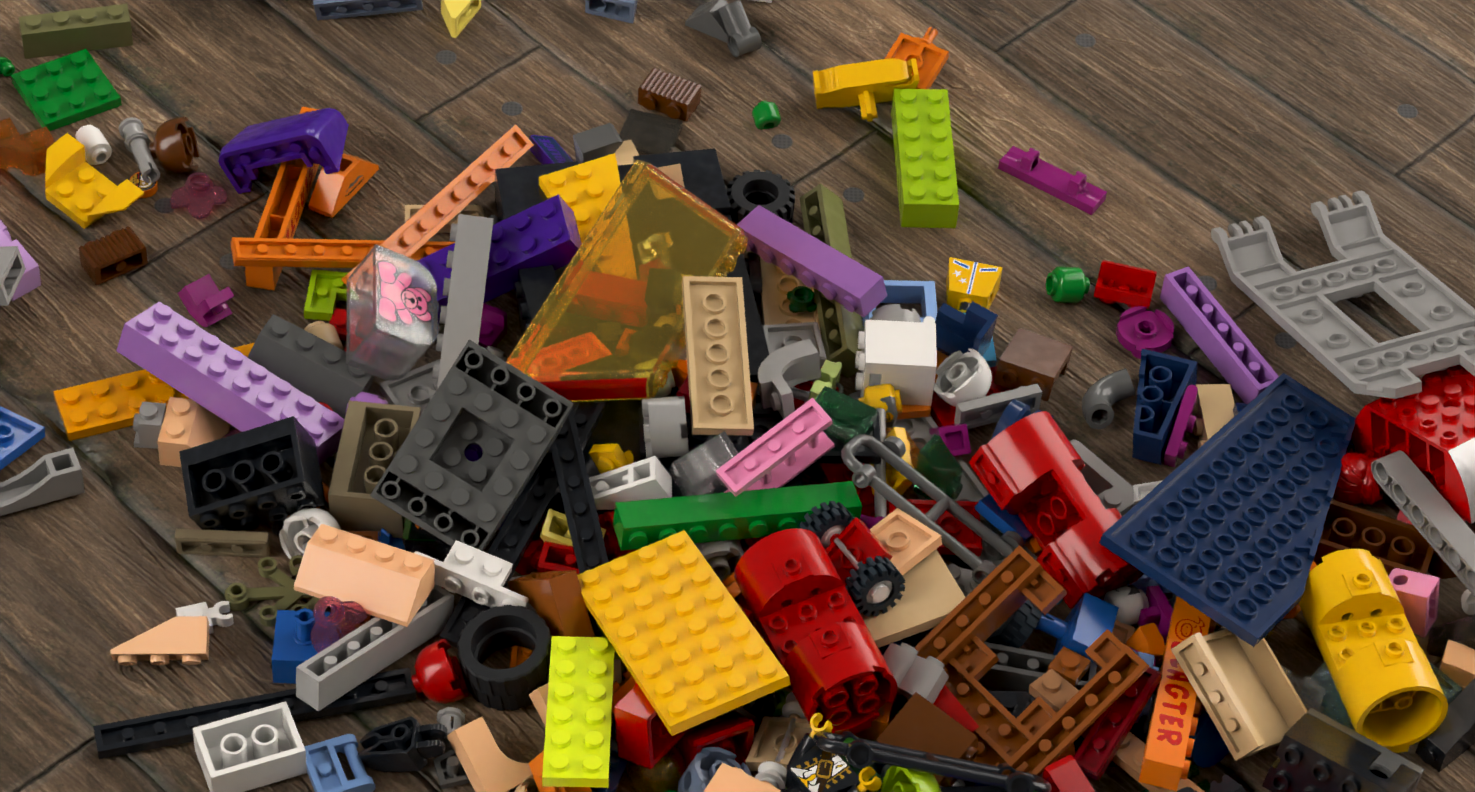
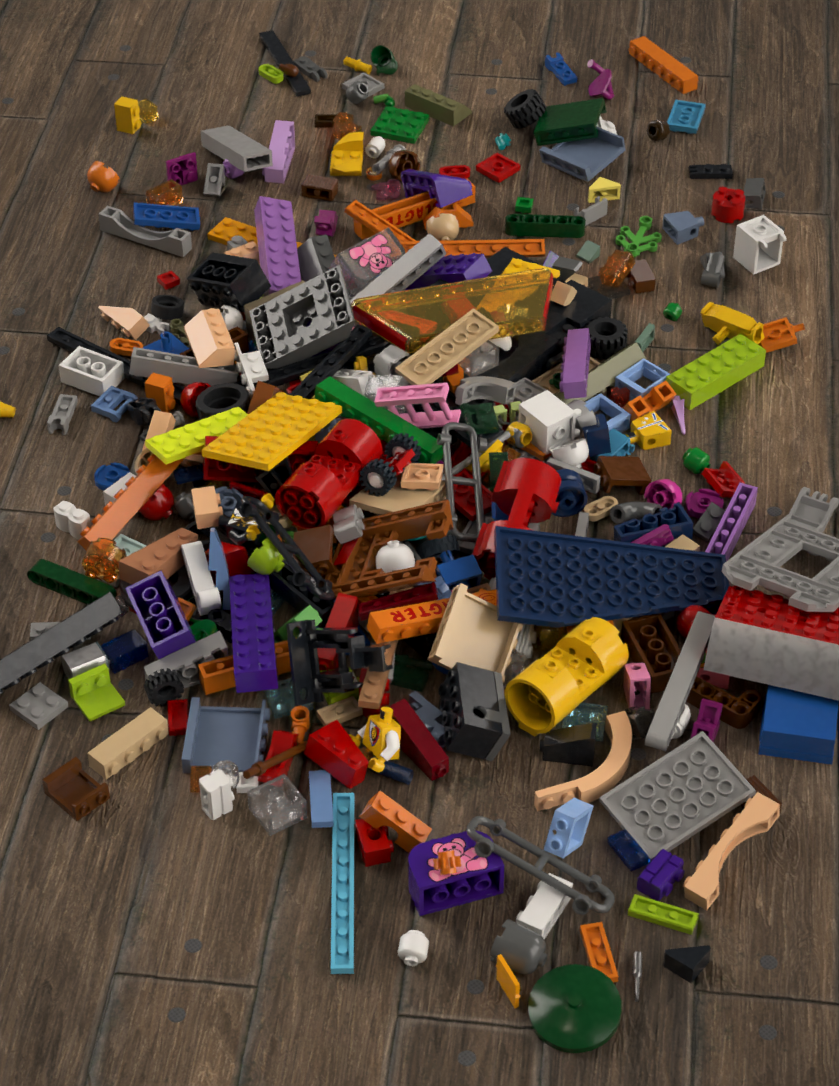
camera: 55 degrees right, 5 degrees down
(124, 540) = (168, 279): none -> red plate
(192, 565) = (167, 307): none -> black tyre
(222, 543) = (193, 300): dark tan tile -> none
(224, 680) = (124, 346): none -> orange plate
(234, 24) = (502, 141): none -> teal plate
(246, 110) = (460, 171): none -> red plate
(287, 65) = (498, 167): none -> red plate
(336, 625) = (181, 347): clear pink plate -> none
(366, 201) = (443, 227): none -> tan cylinder
(392, 698) = (162, 390): none -> orange brick
(397, 95) = (524, 205): none -> green plate
(466, 106) = (545, 225): none -> dark green beam
(486, 49) = (593, 212): none -> light grey hinge
(563, 104) = (589, 251): none -> sand green slope
(602, 65) = (645, 223): none -> bright green plant
(649, 103) = (616, 268): none -> clear orange brick
(795, 172) = (646, 337): none -> sand green tile
(876, 250) = (640, 369): none -> light blue window
(880, 267) = (620, 396): none -> clear red tile
(922, 242) = (655, 400): none -> orange arch
(951, 235) = (678, 410): none -> lavender piece
(1022, 674) = (394, 557): none -> white cylinder
(1052, 180) = (767, 422): magenta hinge -> none
(1066, 417) = (600, 508): none -> tan plate
(1110, 352) = (664, 493): none -> dark pink cylinder
(1184, 343) = (708, 522): none -> dark grey plate

